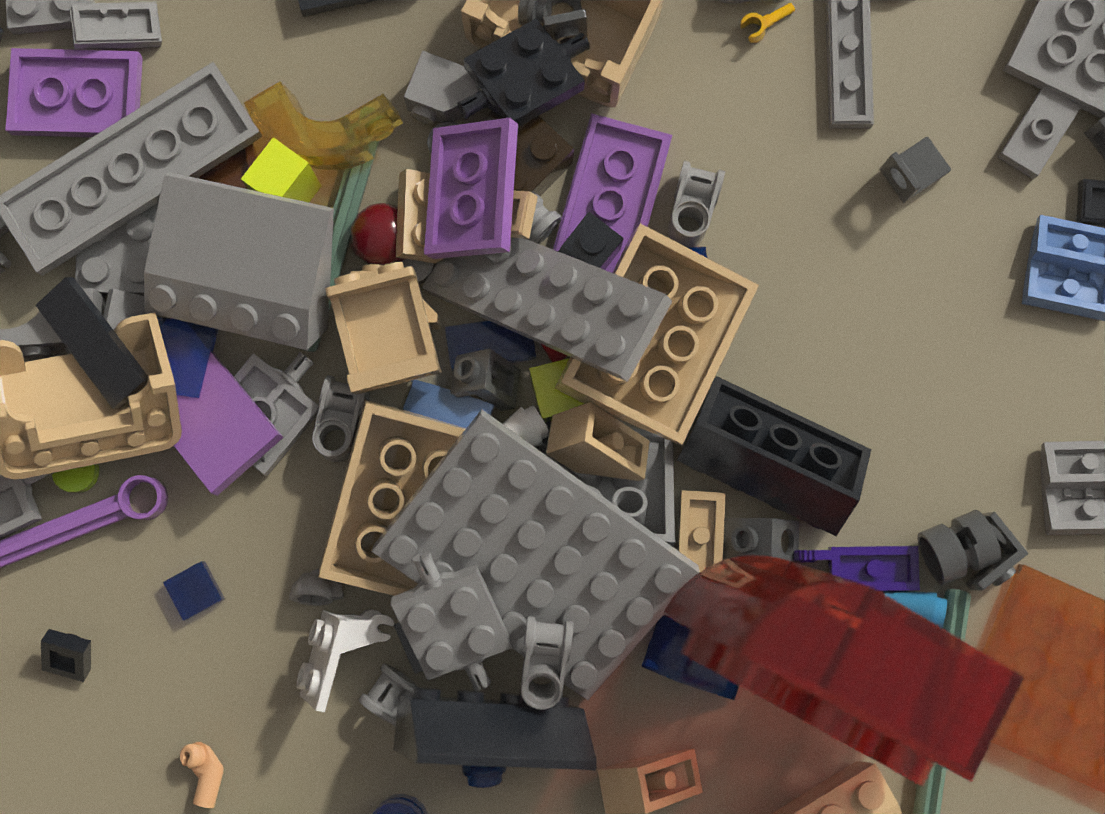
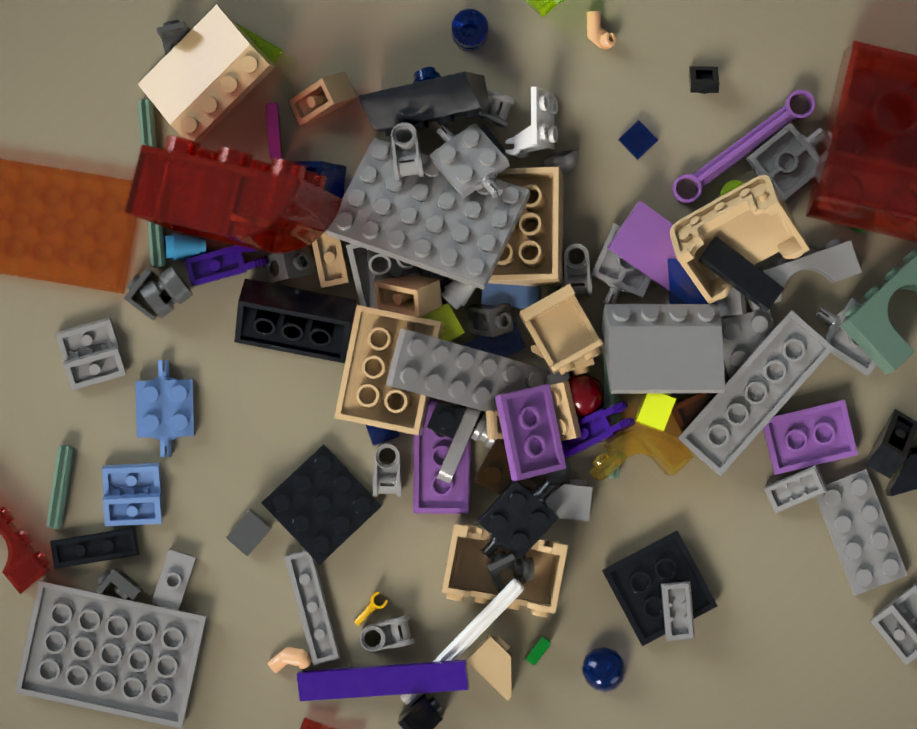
camera: 170 degrees right, 5 degrees up
(370, 179) = (596, 429): none -> dark purple hinge
(587, 200) = (458, 444): none -> light grey beam
(737, 748) = (274, 131): none -> magenta tile
(802, 180) = (321, 504): none -> black plate
(997, 378) = (164, 408): none -> medium blue plate

